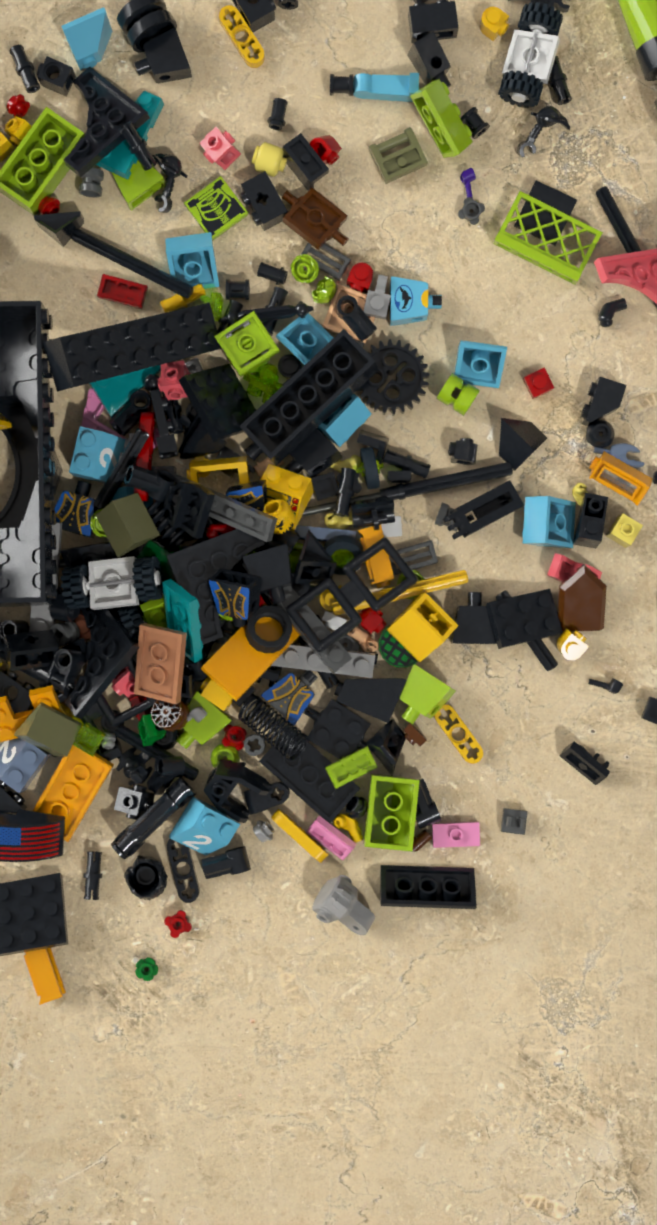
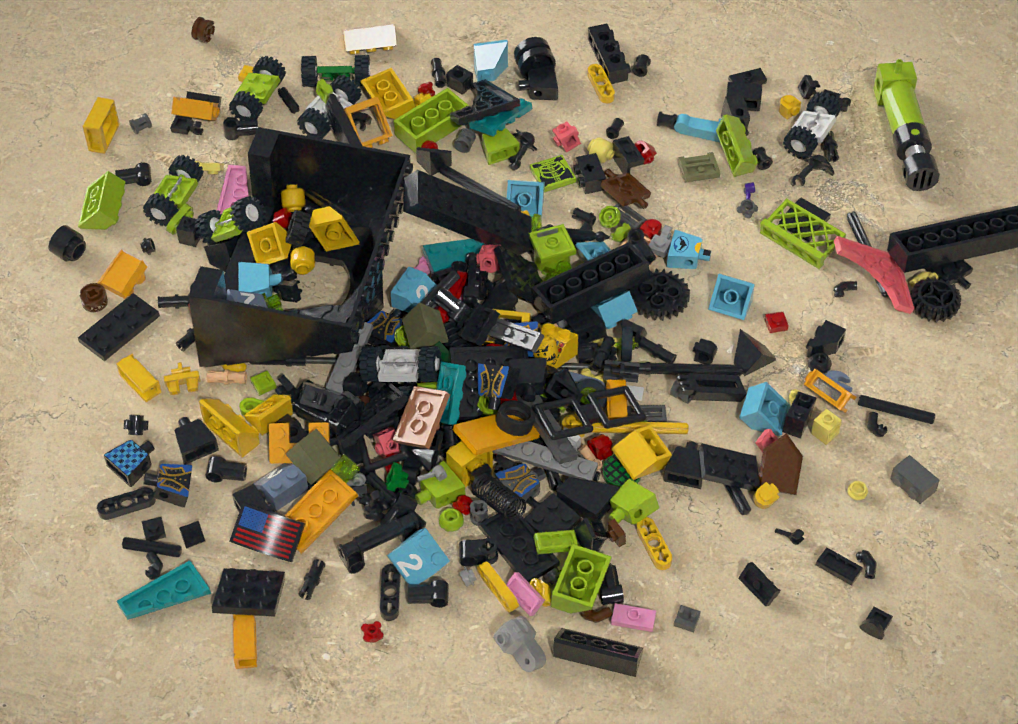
camera: 15 degrees right, 35 degrees down
(133, 800) = (362, 524): black brick -> none
(137, 146) = (506, 116): black pin -> none
(146, 877) = (358, 588): black hair -> none
(146, 975) = (333, 665): green plate -> none
(169, 715) = (416, 464): reddish brown wheel -> none
(223, 781) = (452, 524): black piece -> none
(237, 289) = (554, 219): black bush -> none
(398, 476) = (648, 355): black tile -> none
(464, 399) = (709, 313): lime wheel -> none

